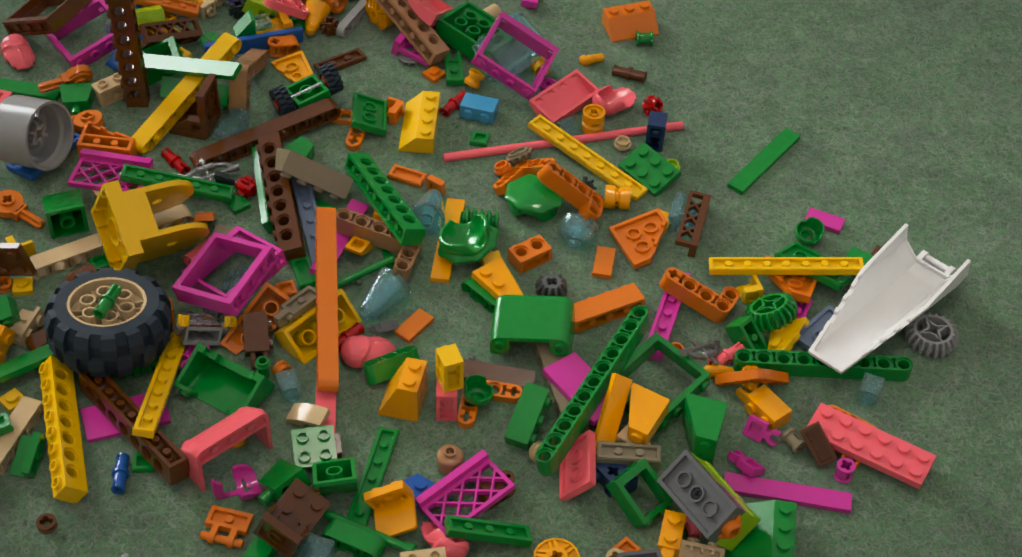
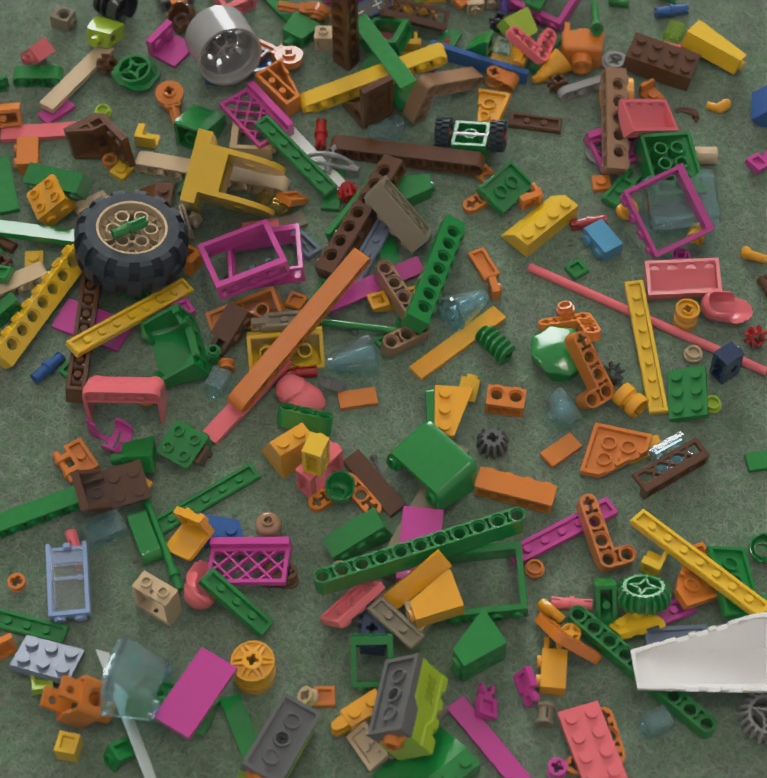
camera: 45 degrees right, 10 degrees up
(201, 328) = (197, 290): light grey torso -> none
(221, 178) = (330, 170): black tile -> none
(307, 414) = (207, 416): tan slope -> none
(335, 476) = (174, 477): green slope -> none
(467, 241) = (461, 354): green piece -> none
(519, 155) = (589, 306): dark tan gear -> none
(568, 125) = (659, 306): clear light blue plate -> none
(706, 354) = (571, 585): flat silver piece -> none
(818, 444) = (555, 732): reddish brown plate -> none

